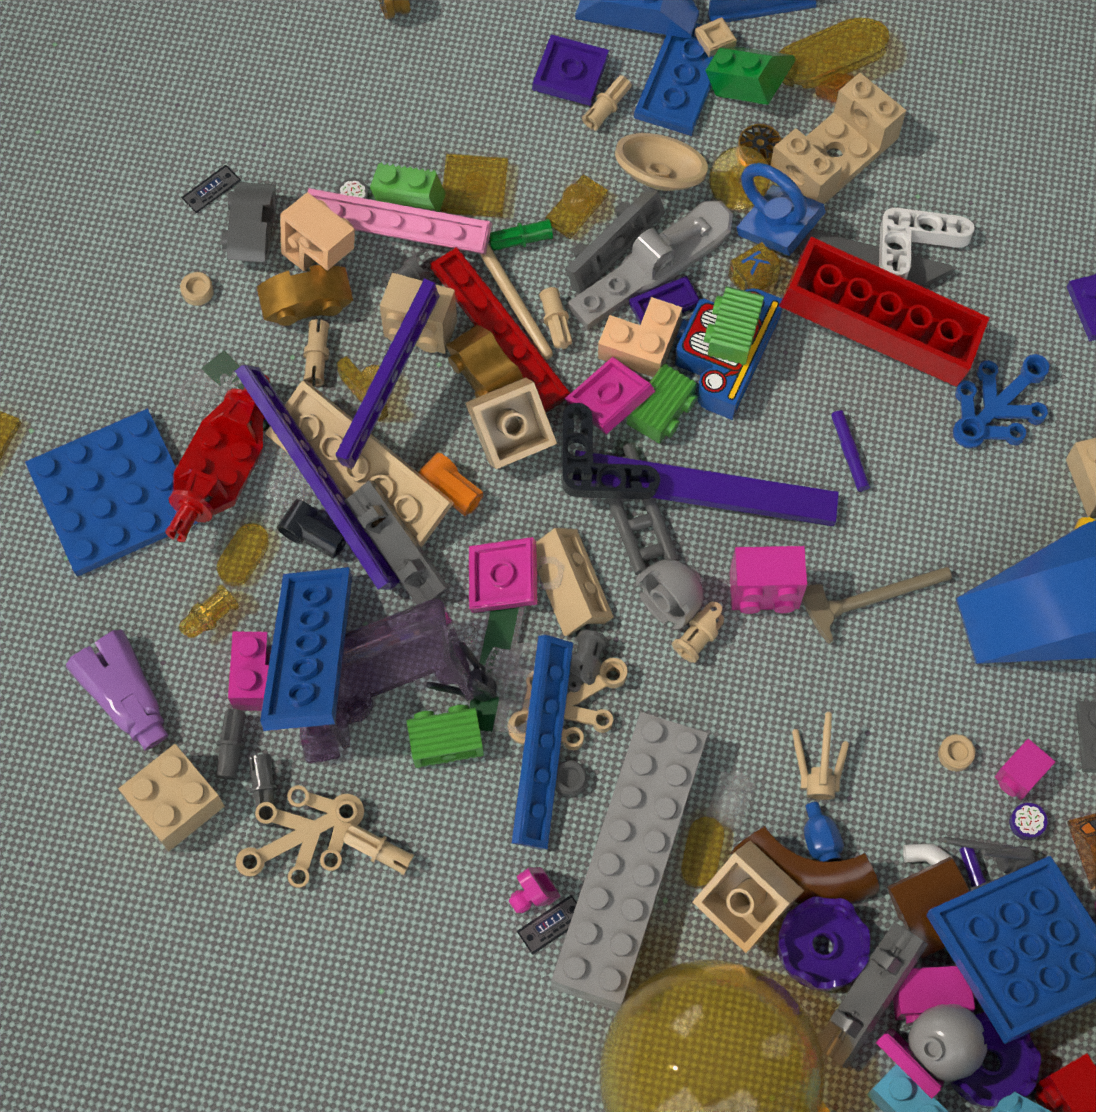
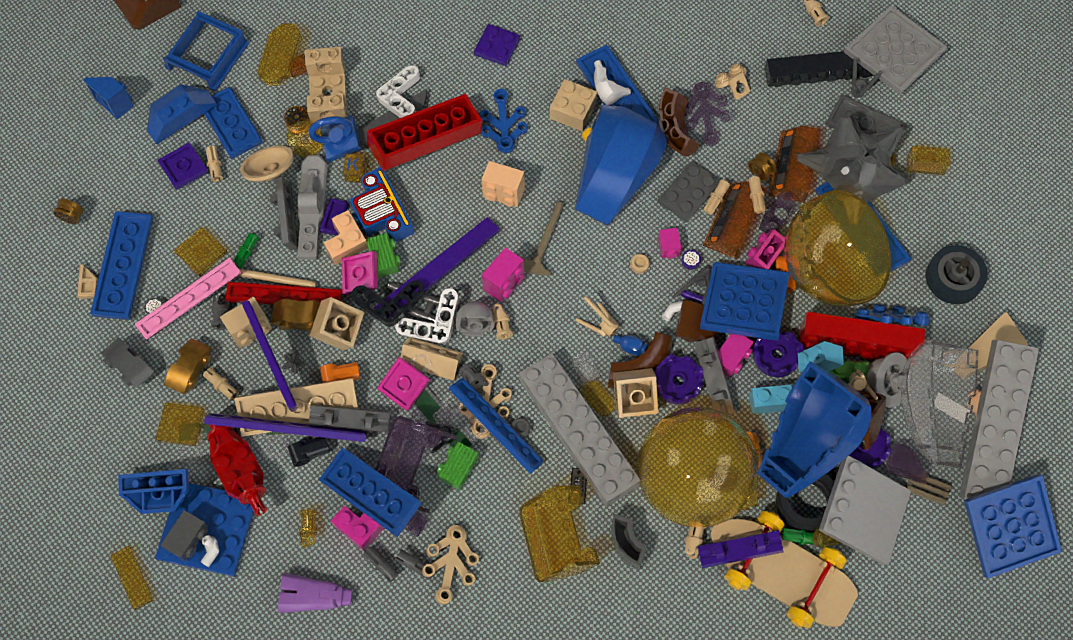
camera: 50 degrees left, 0 degrees up
(75, 471) = (185, 536): none -> dark grey brick
(84, 519) = (212, 550): none -> white arm
(107, 387) = (154, 490): none -> blue wedge
(171, 797) = (384, 608): tan brick -> none
(196, 288) = (136, 414): tan tile -> none
(211, 189) = (89, 369): sticker -> none
(222, 348) = (180, 424): none -> clear yellow plate
(242, 554) = (292, 491): clear yellow tile -> none
(314, 234) = (164, 336): light nougat brick -> none
(319, 96) = (87, 283): none -> tan tile
(358, 381) = (258, 373): clear yellow tile -> none
(376, 112) = (122, 265): none -> blue plate
(378, 848) = (485, 533): tan axle -> none
(408, 187) = (177, 280): bright green brick -> none
(419, 415) = (293, 362): none -> dark grey plant
(447, 945) = (553, 534): none -> clear yellow windscreen
(516, 1052) = (626, 543): none -> dark grey brick
(537, 890) = (559, 477): dark pink piece -> none
(556, 317) = (300, 267): tan axle -> none
(576, 205) = (253, 216): clear yellow tile -> none
(624, 554) = (439, 325): none -> white beam
(715, 36) = (226, 94): tan tile -> none
(734, 326) = (377, 195): bright green brick -> none
(748, 73) = (258, 94): green slope -> none
(850, 451) = (471, 197): dark purple piece -> none
(898, 1051) = (755, 383): dark pink tile -> none
(902, 473) = (503, 184): none -> light nougat brick
(947, 1042) = (759, 362): light grey cylinder -> none

